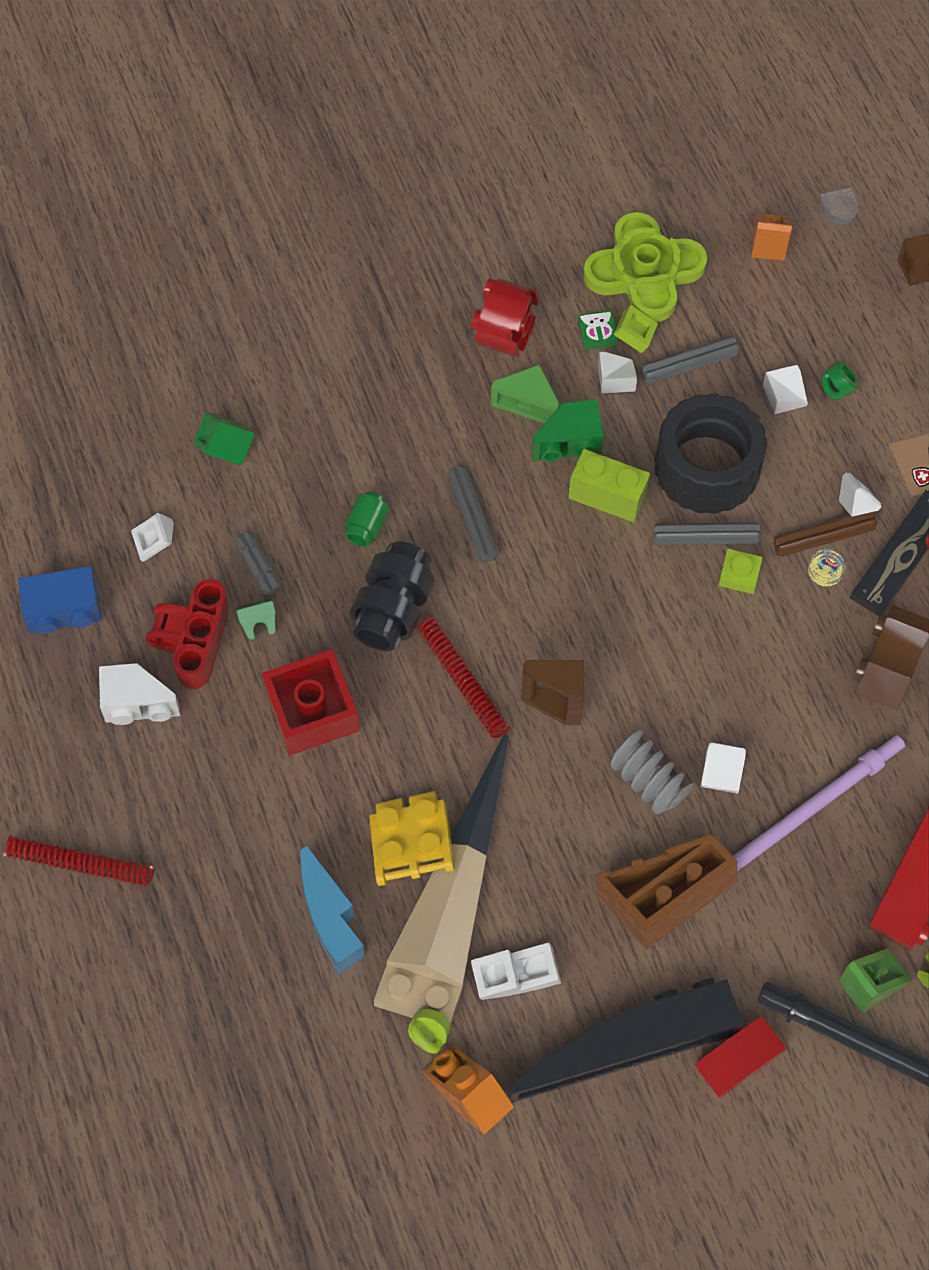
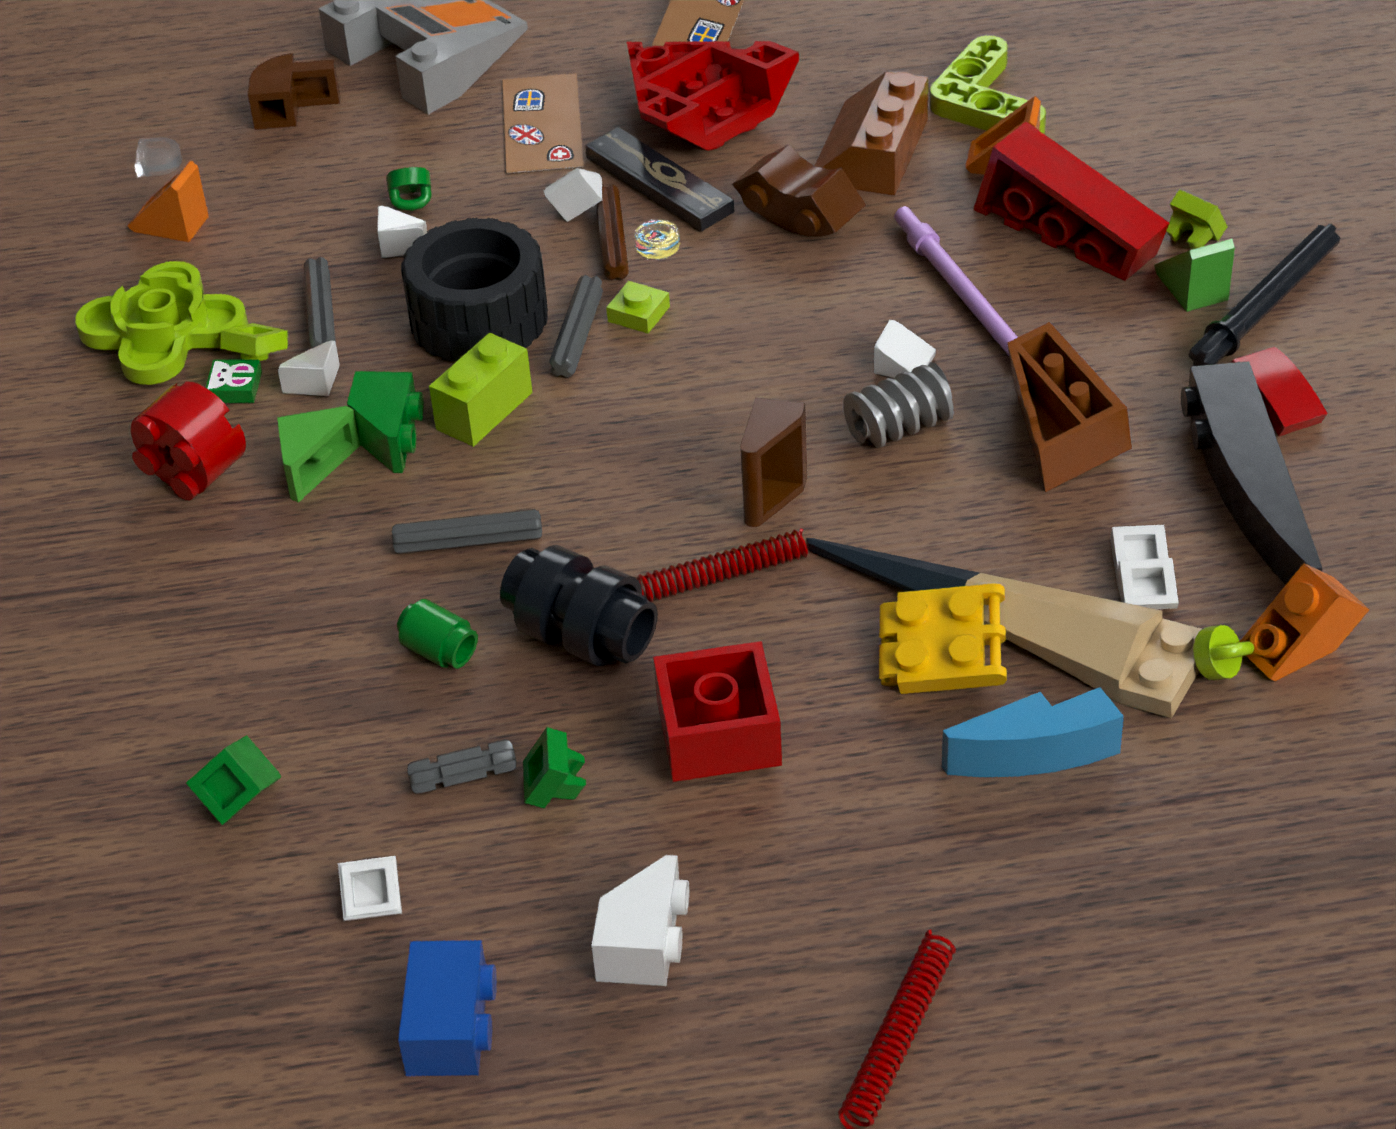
camera: 75 degrees left, 20 degrees down
(177, 625) = (556, 842): red piece -> none

